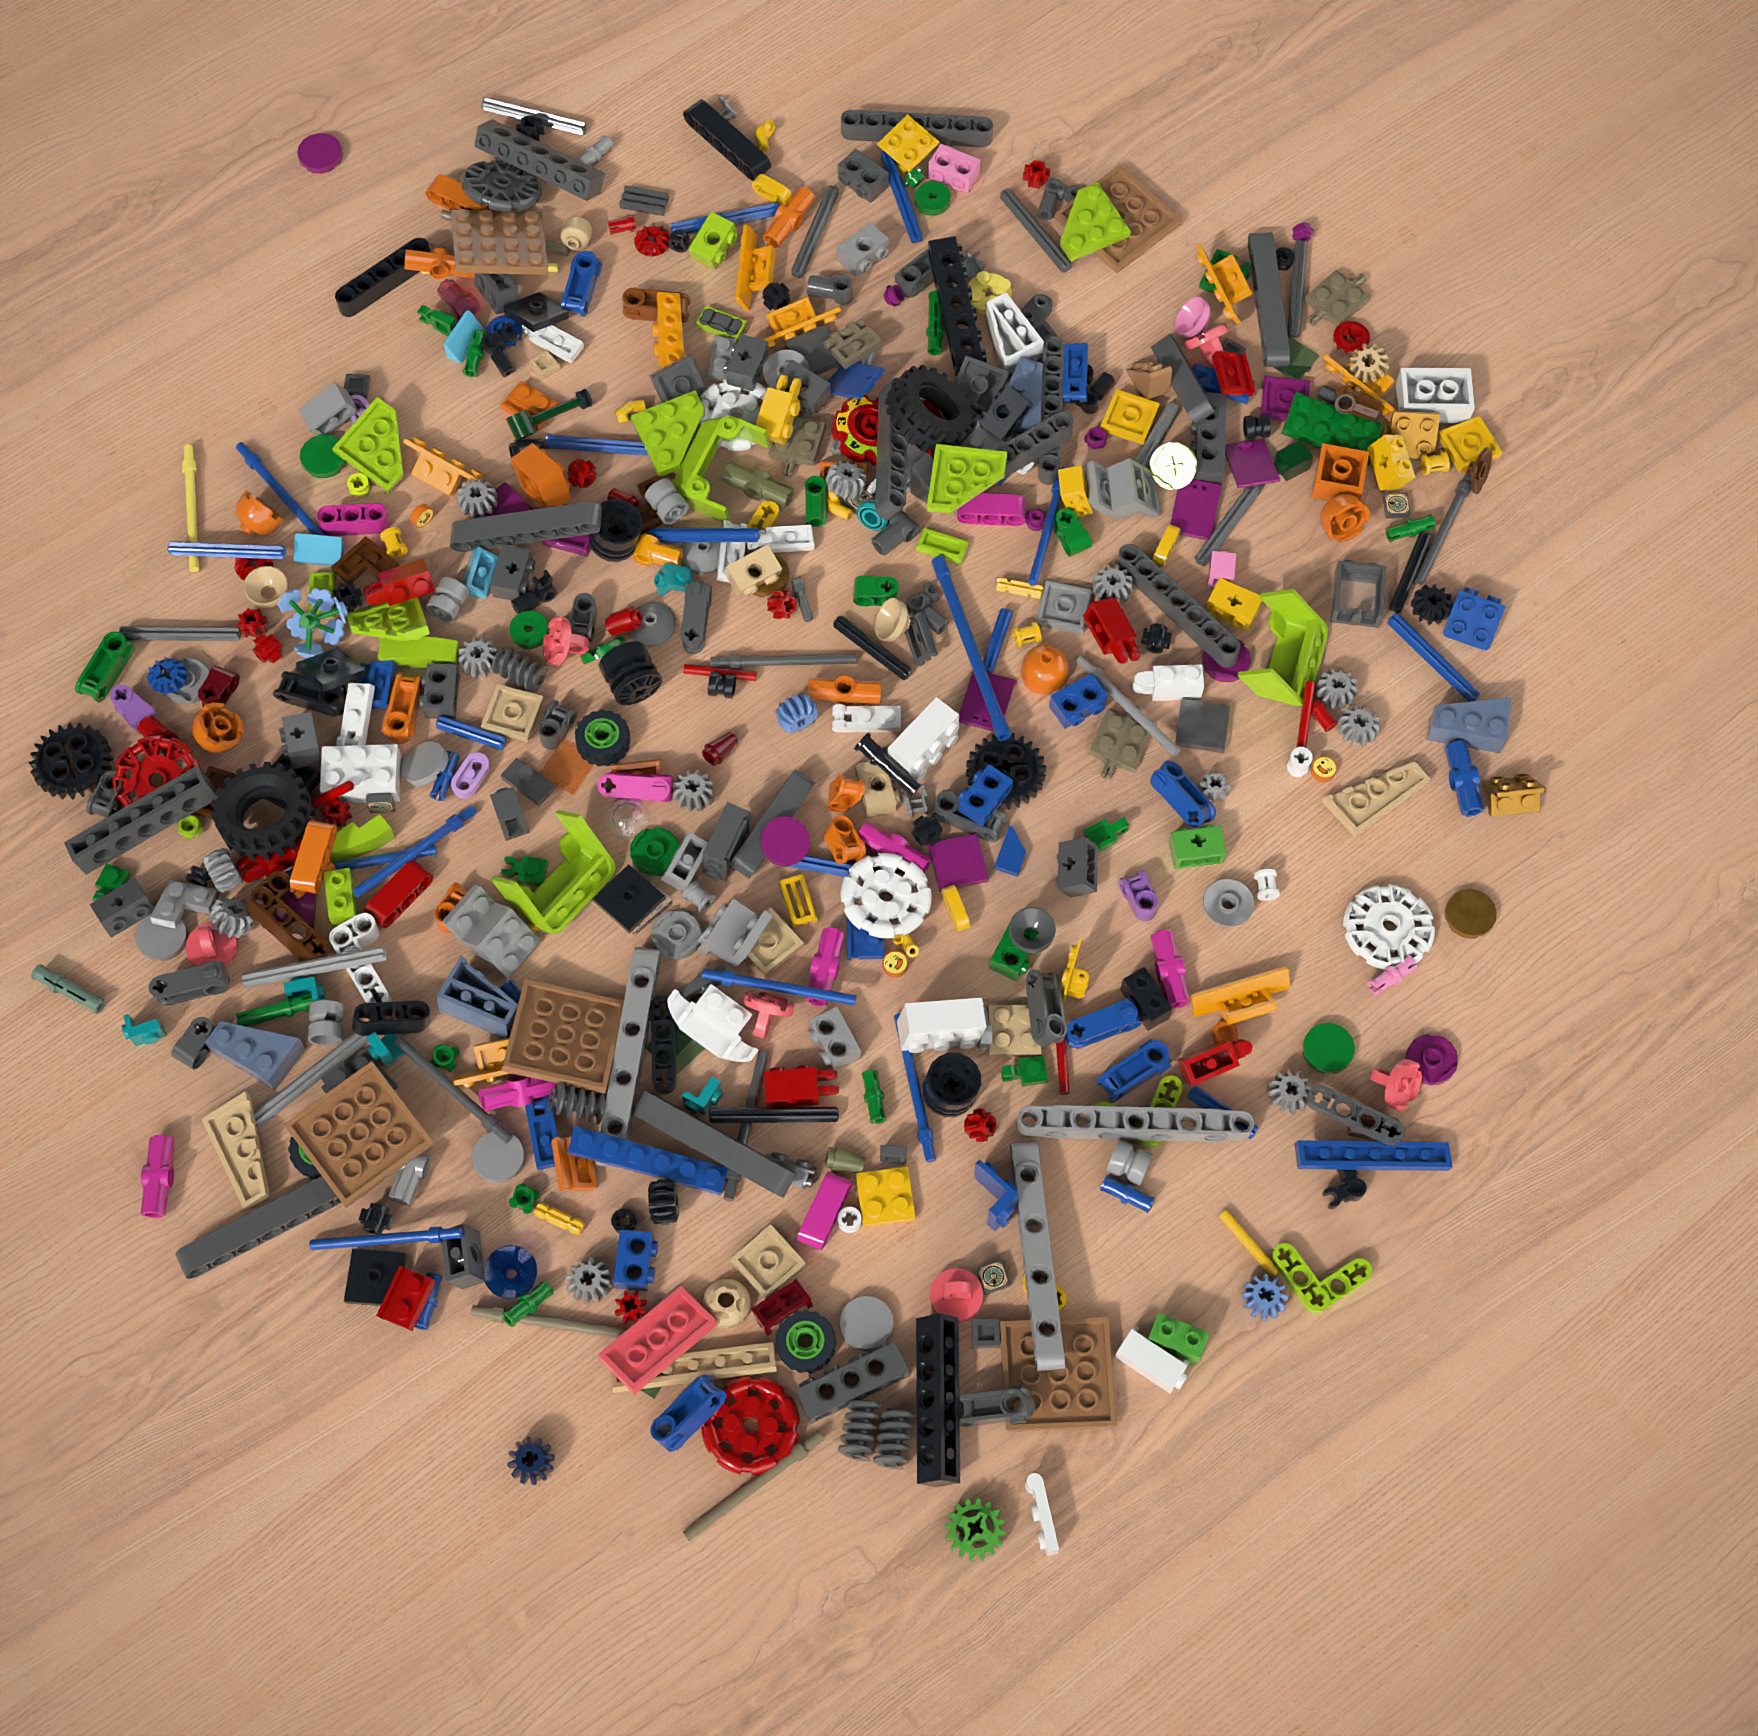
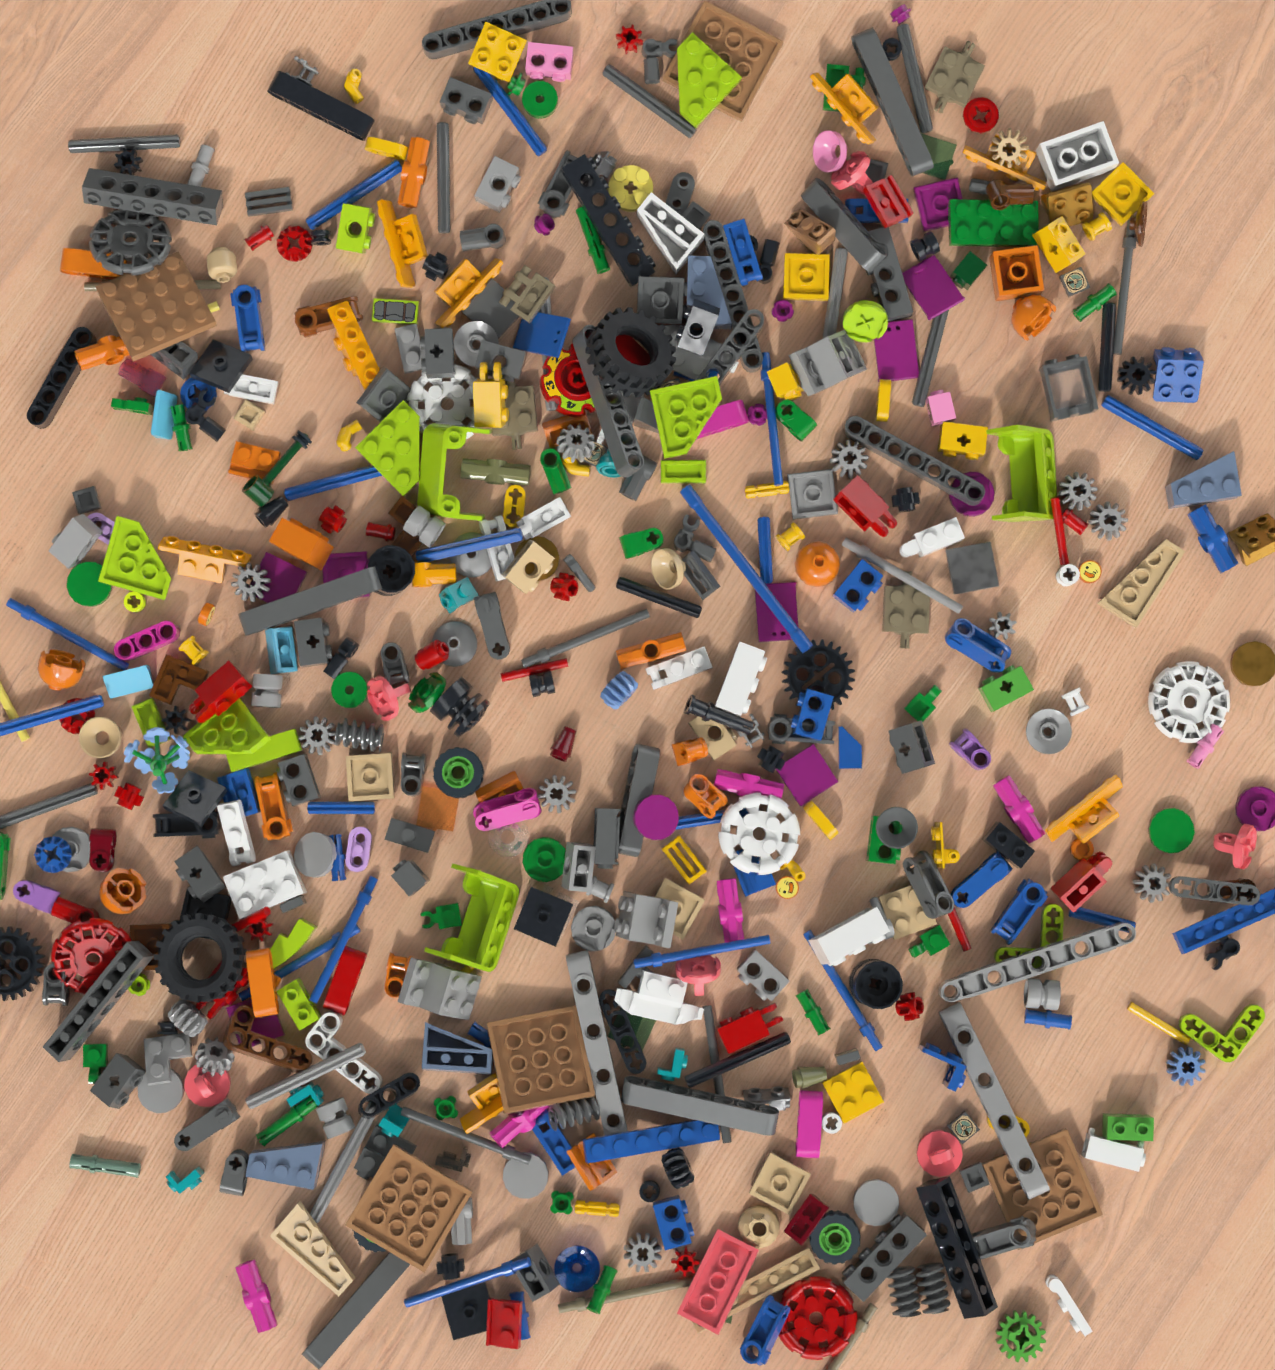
camera: 20 degrees left, 20 degrees up
(425, 1110) = (450, 1161): none -> clear smoke bracket

